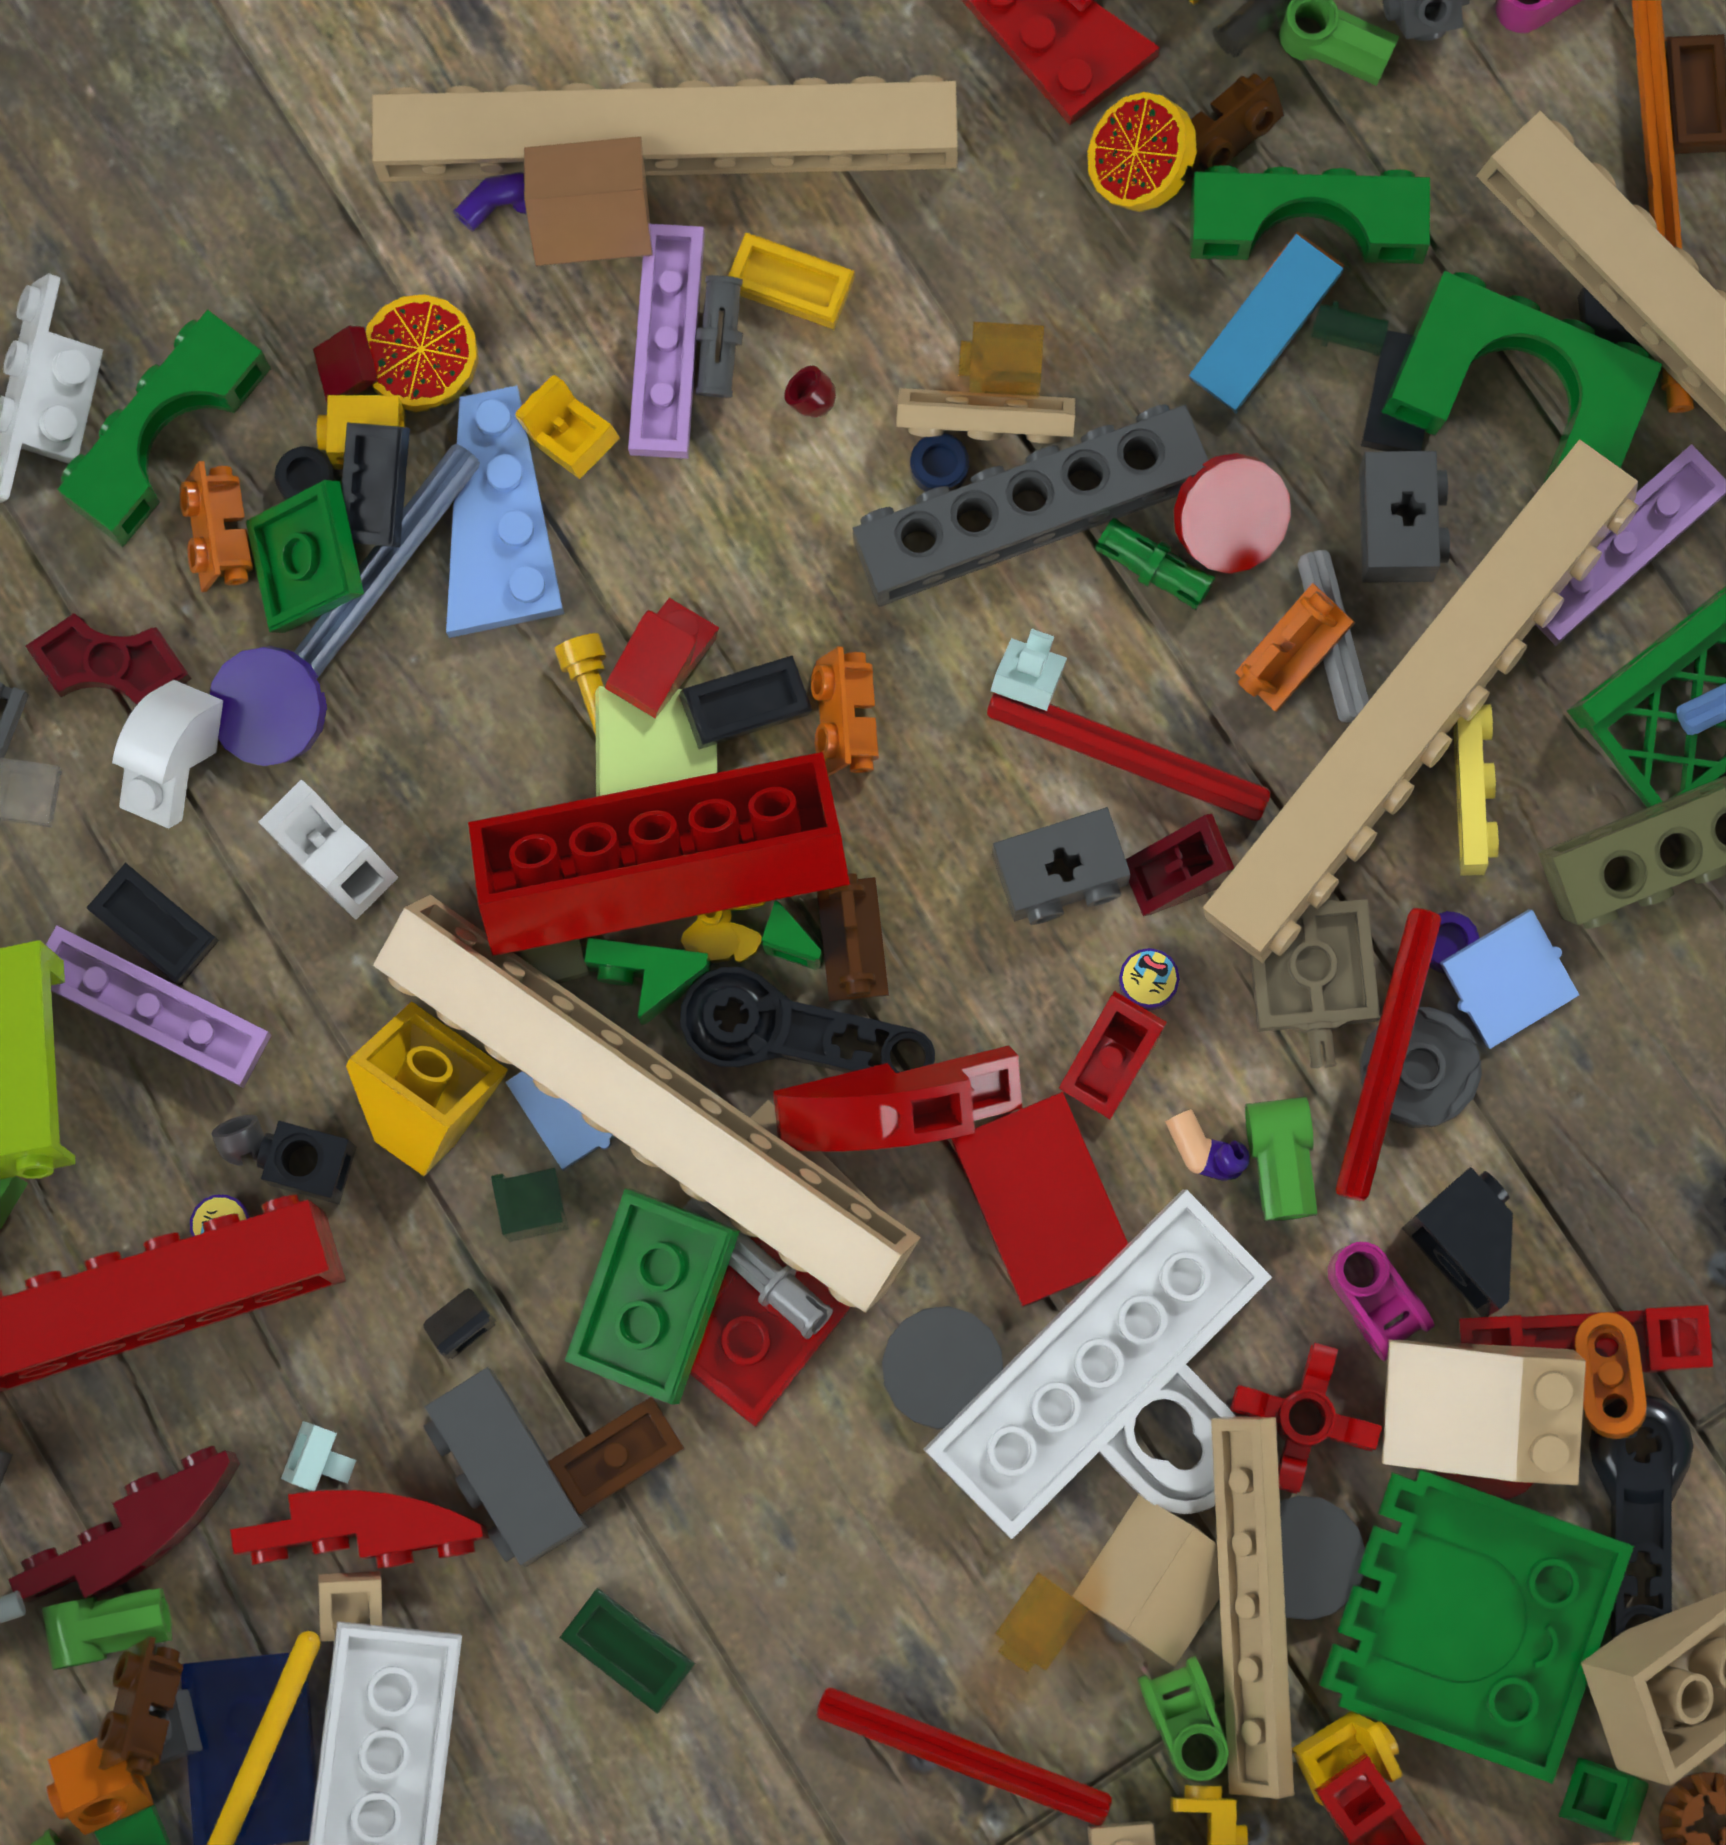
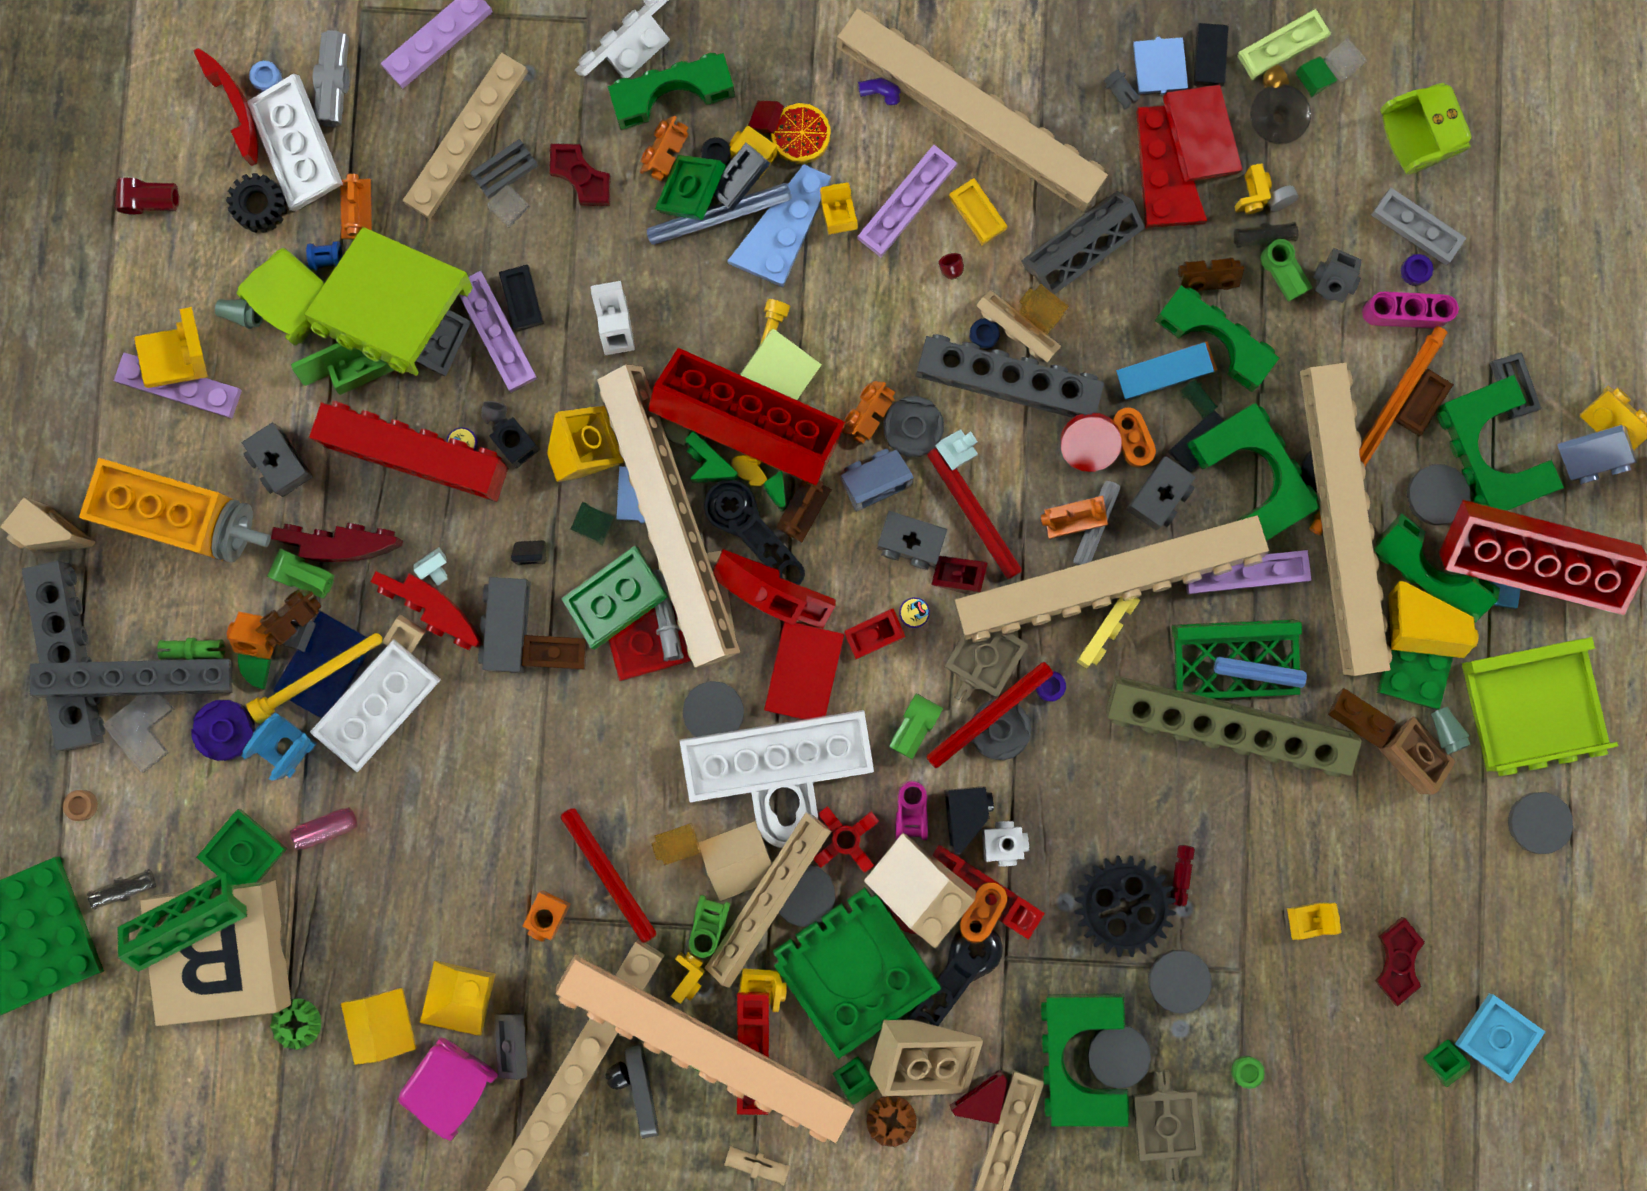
camera: 30 degrees right, 5 degrees up
(82, 1084) = (444, 343): none -> dark grey bracket
(158, 746) = (576, 224): white brick -> none
(269, 705) = (631, 239): dark purple tile -> none
(587, 201) = (914, 117): medium nougat slope -> none
(627, 1650) = (503, 734): dark green tile -> none
(661, 656) = (808, 333): red slope -> none
(724, 296) = (944, 198): dark grey pin -> none
(745, 702) = (830, 378): black tile -> none
(933, 686) = (913, 426): none -> dark grey tile
(937, 808) = (876, 479): none -> sand blue slope
(985, 204) = (1084, 232): none -> dark grey fence
(1141, 151) = (1165, 260): tile -> none
(1154, 563) = (1043, 440): green pin -> none
(1205, 1155) = (884, 702): arm -> none
(1296, 457) = (1135, 437): none -> orange plate
(1509, 978) = (1064, 719): light blue piece -> none
(1544, 1254) = (993, 840): none -> white brick

